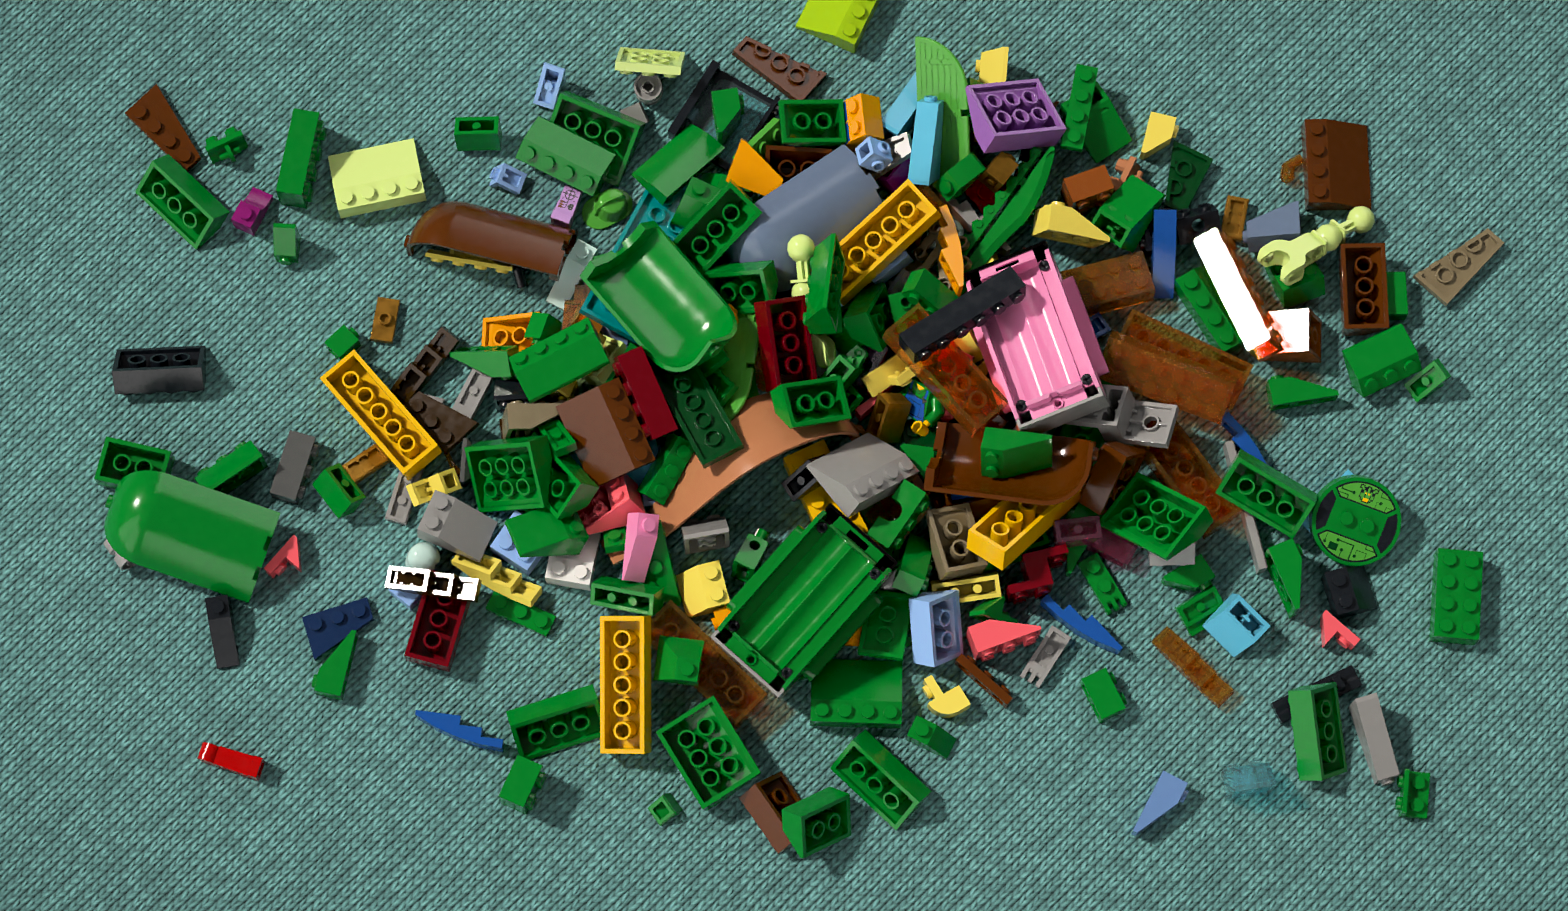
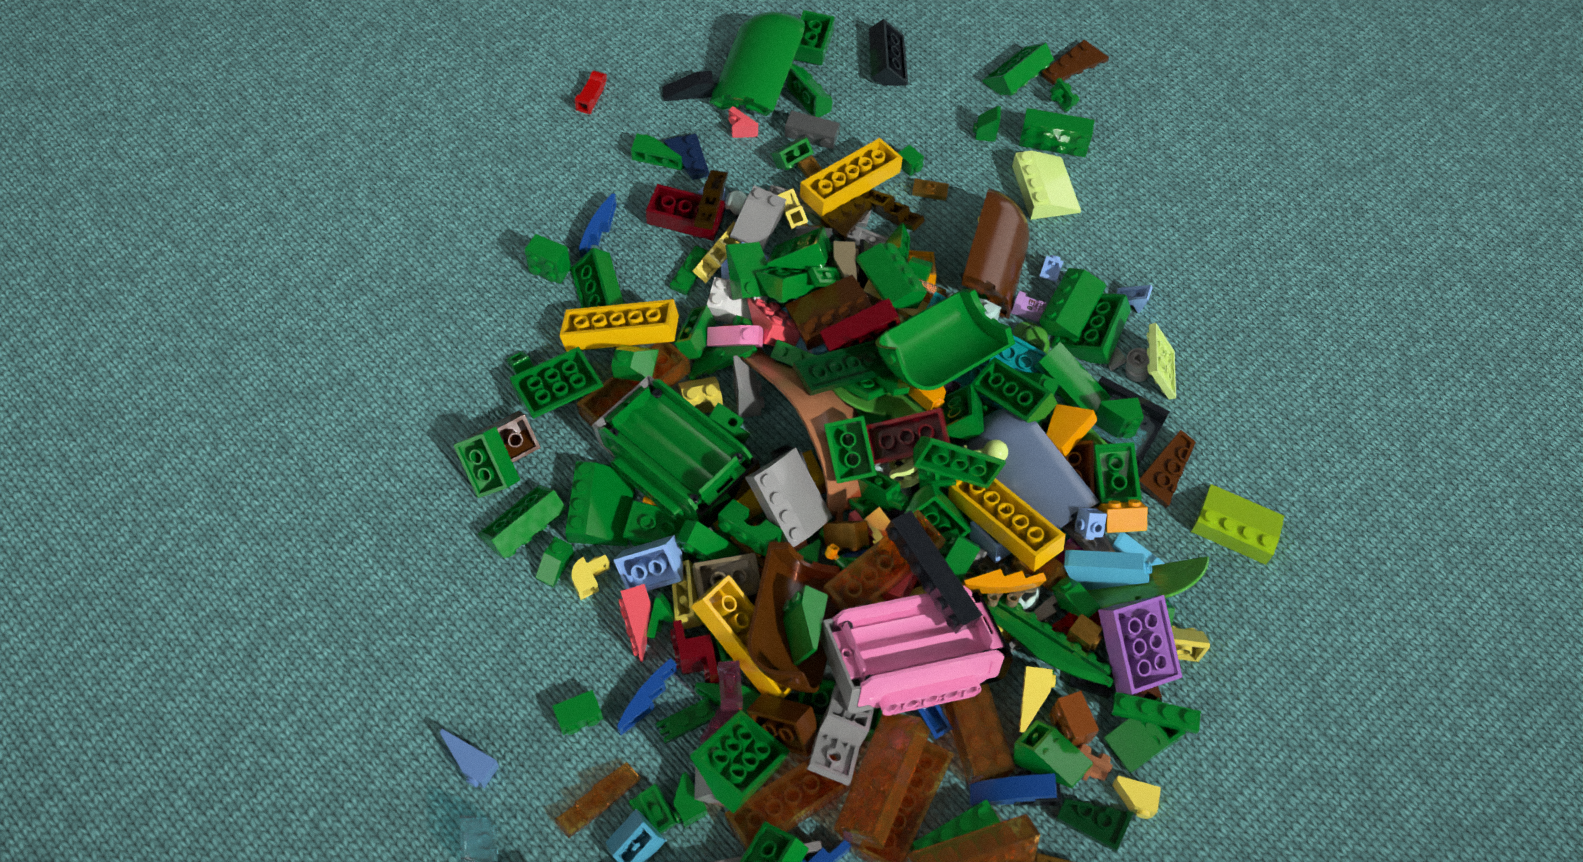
camera: 90 degrees right, 15 degrees down
(252, 211) = (1012, 107): magenta arch -> none
(478, 133) = (1087, 246): green brick -> none
(984, 680) = (599, 610): reddish brown plate -> none
(1046, 655) = (620, 664): light grey hinge -> none
(1208, 218) = (1057, 836): black brick -> none

